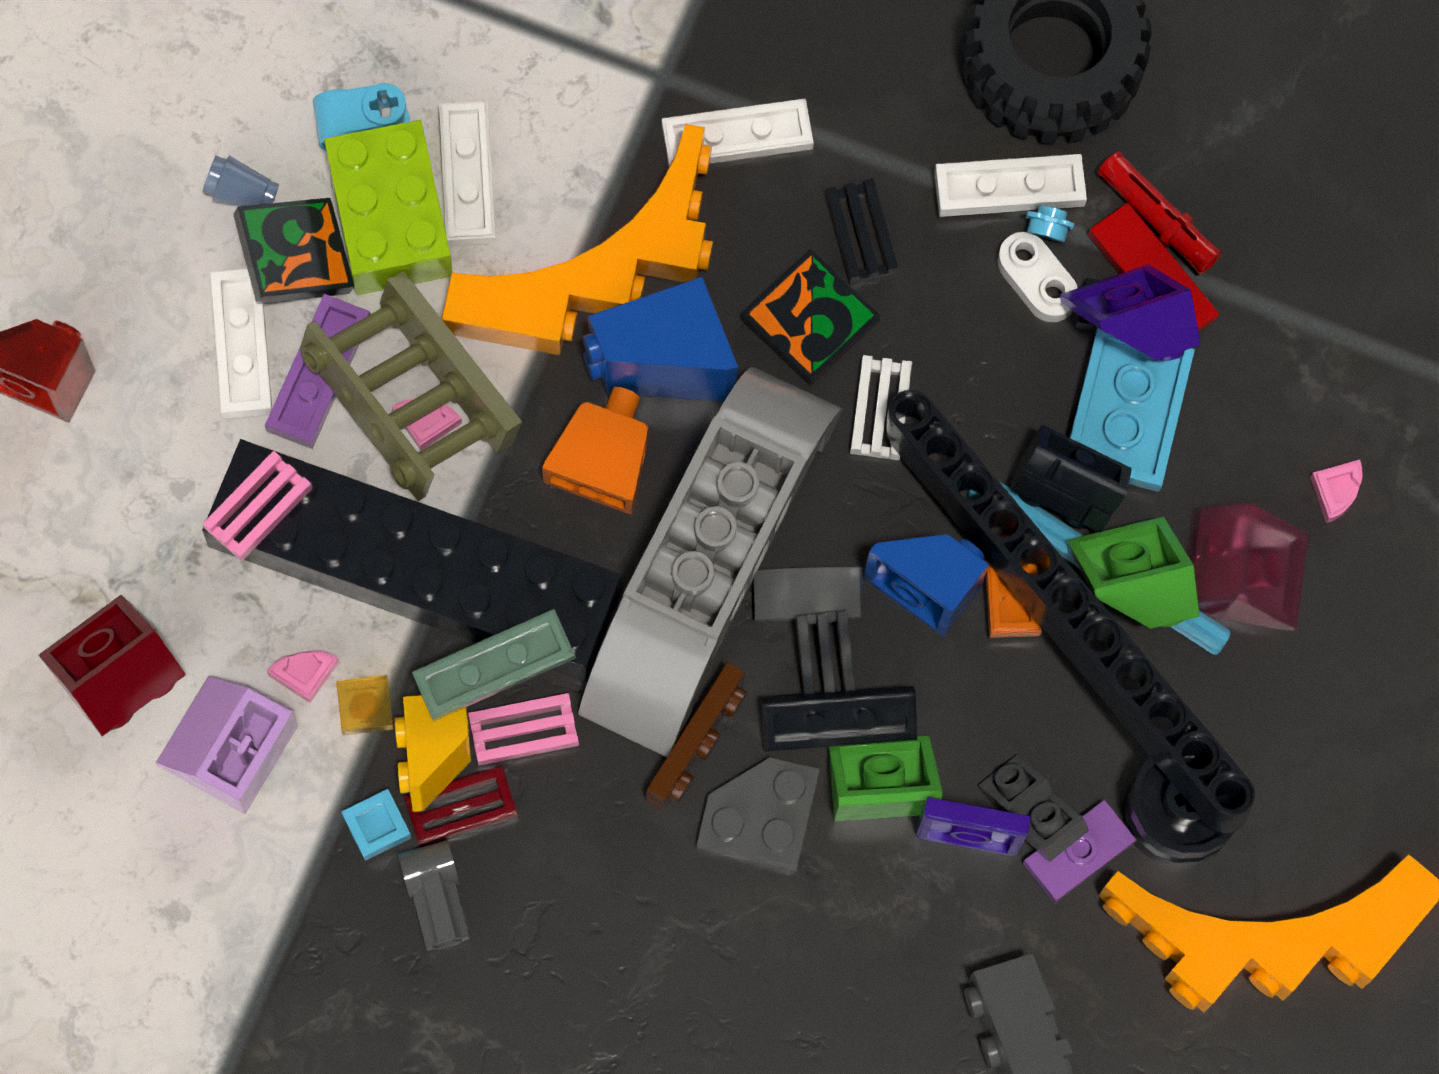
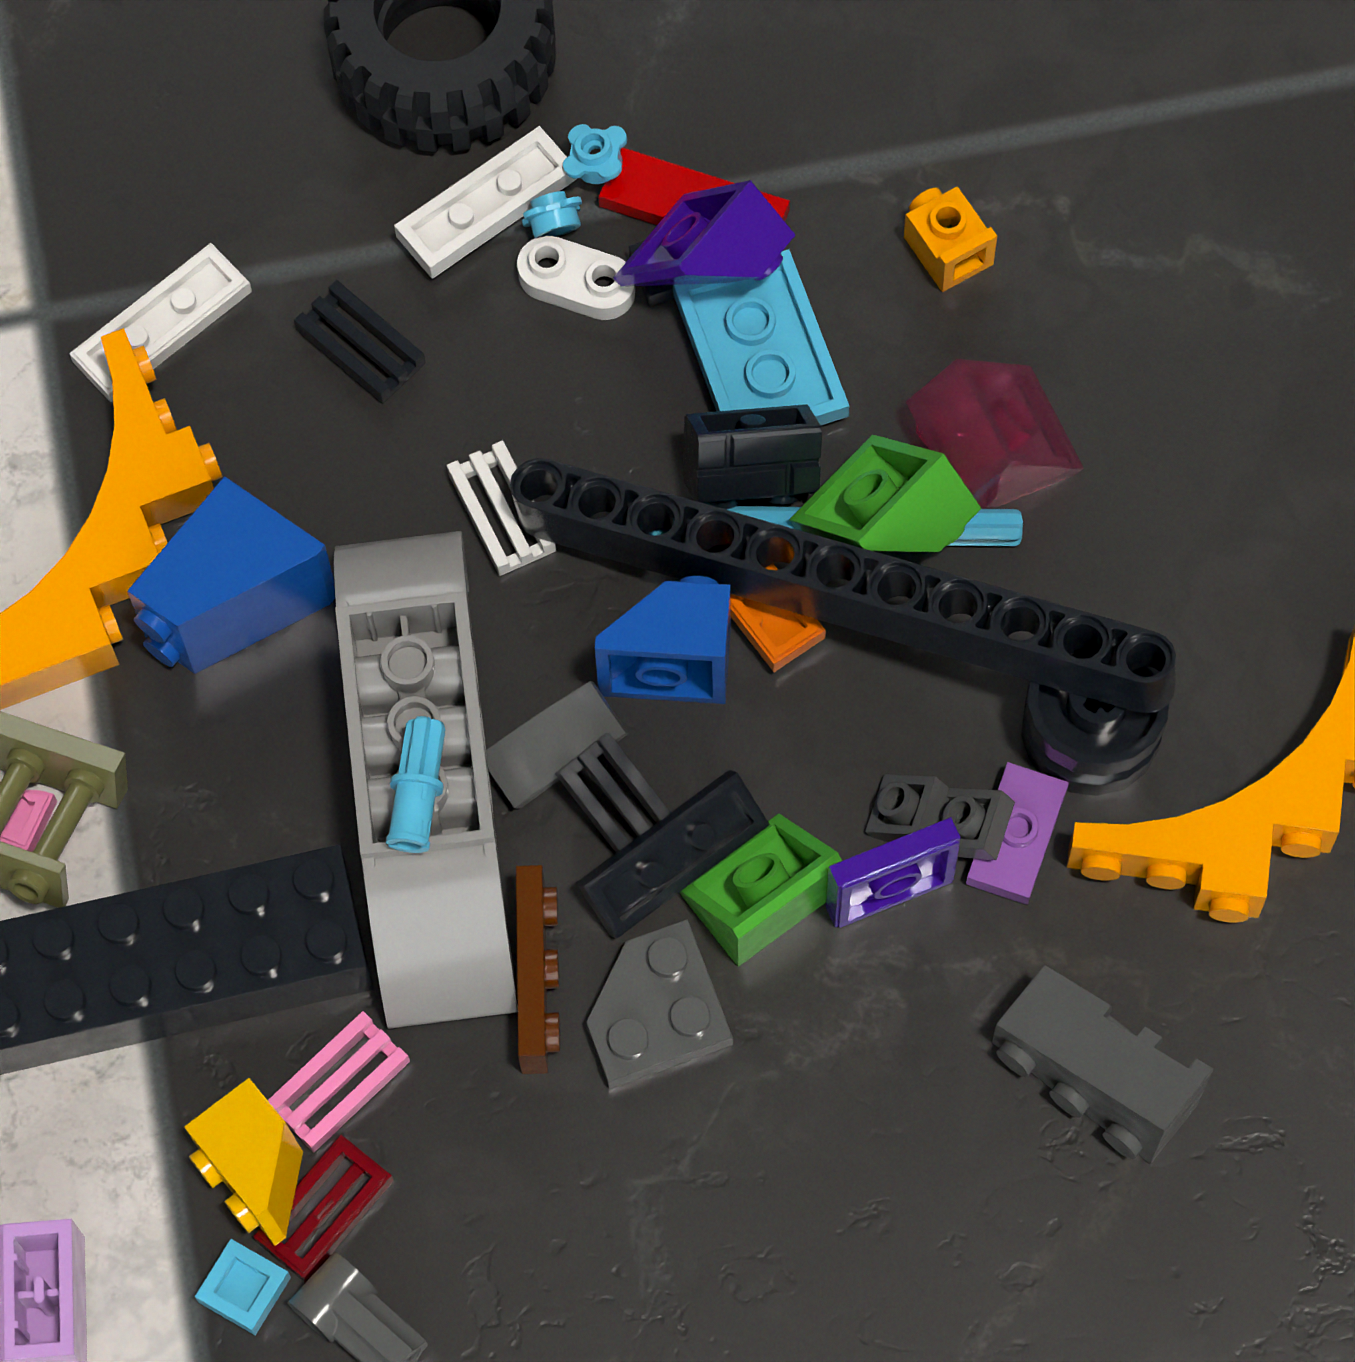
camera: 25 degrees left, 5 degrees down
(304, 672) = (53, 1174): bright pink tile -> none
(365, 705) = (146, 1165): clear yellow plate -> none
(493, 665) = (264, 1026): sand green tile -> none
(601, 452) = (232, 735): orange torso -> none
(688, 571) = (416, 785): none -> medium azure axle
(810, 317) = (364, 461): tile -> none
(1106, 210) = (596, 167): none -> medium azure plate
(1172, 225) = (673, 140): red pin -> none
(1309, 423) = (954, 252): none -> light orange brick
(1337, 488) = (1027, 302): bright pink tile -> none

